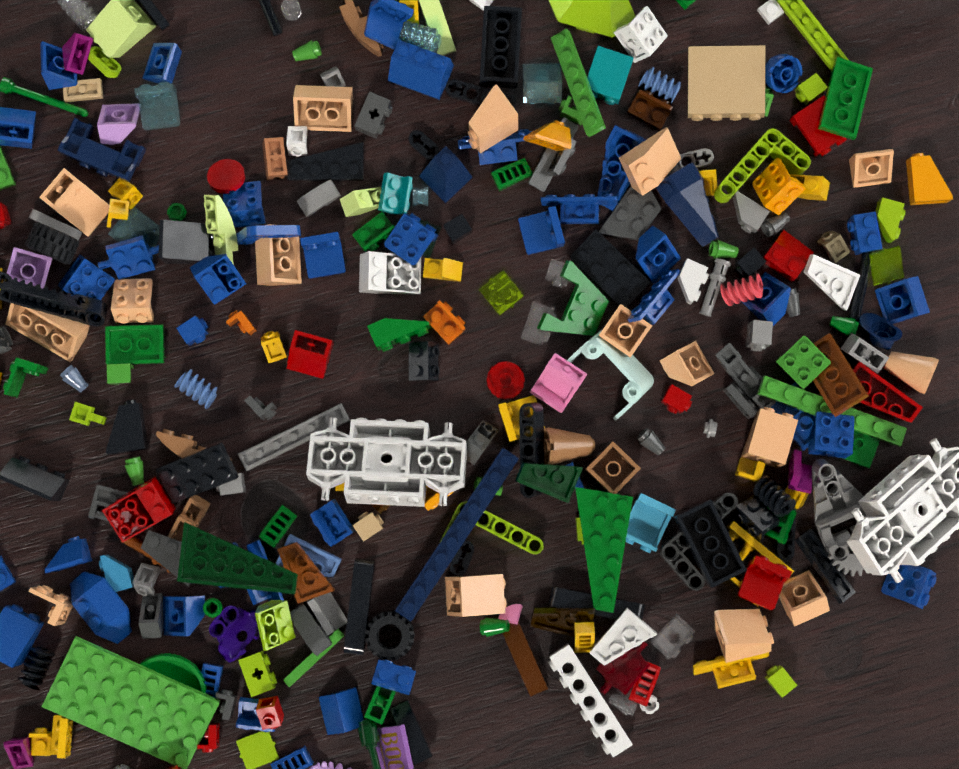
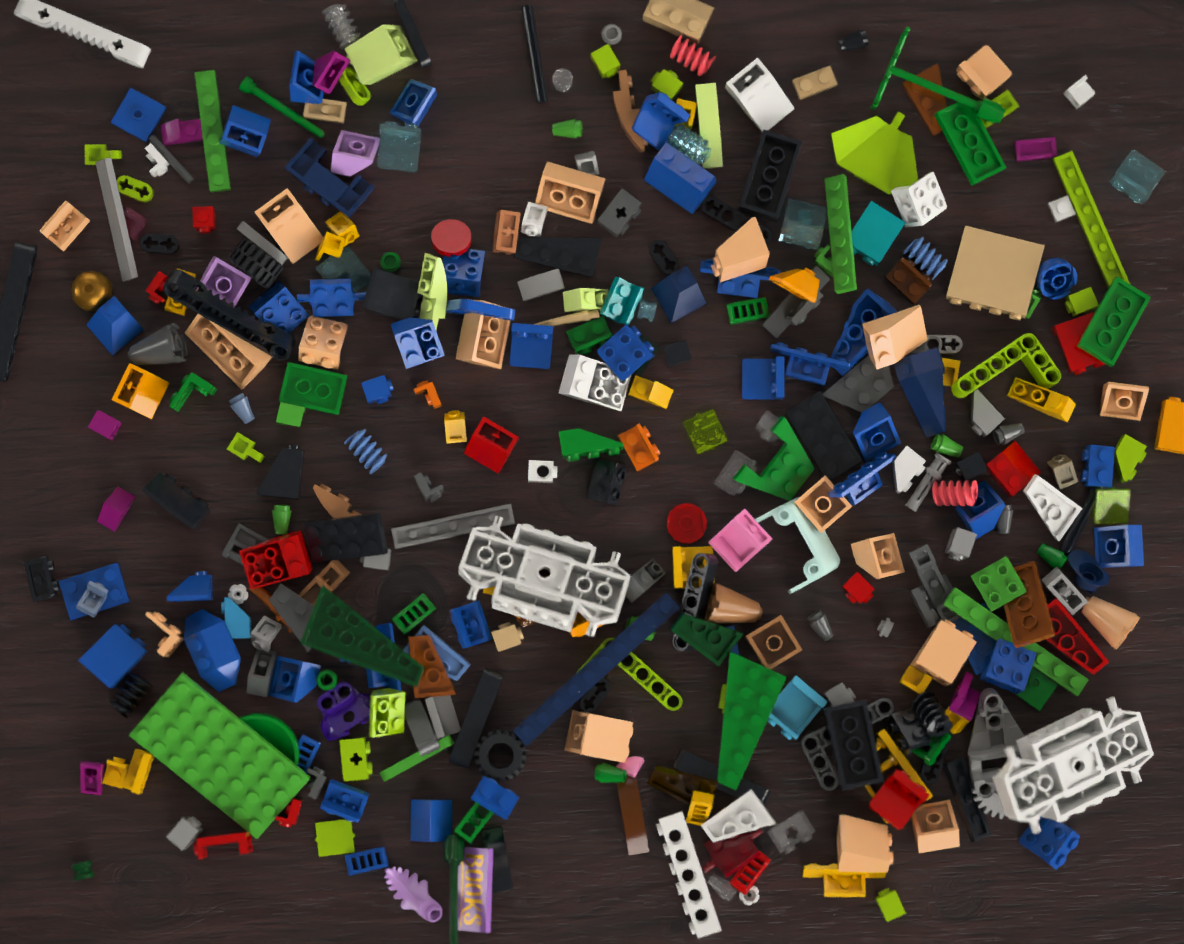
camera: 10 degrees right, 0 degrees up
(113, 544) = (243, 593): none -> white plate
(270, 712) = (359, 802): red brick -> none
(353, 366) = (533, 467): none -> white brick
(358, 219) = (582, 316): none -> tan bar
(684, 500) = (839, 695): none -> light grey brick
(777, 187) = (1018, 395): light orange bracket -> none

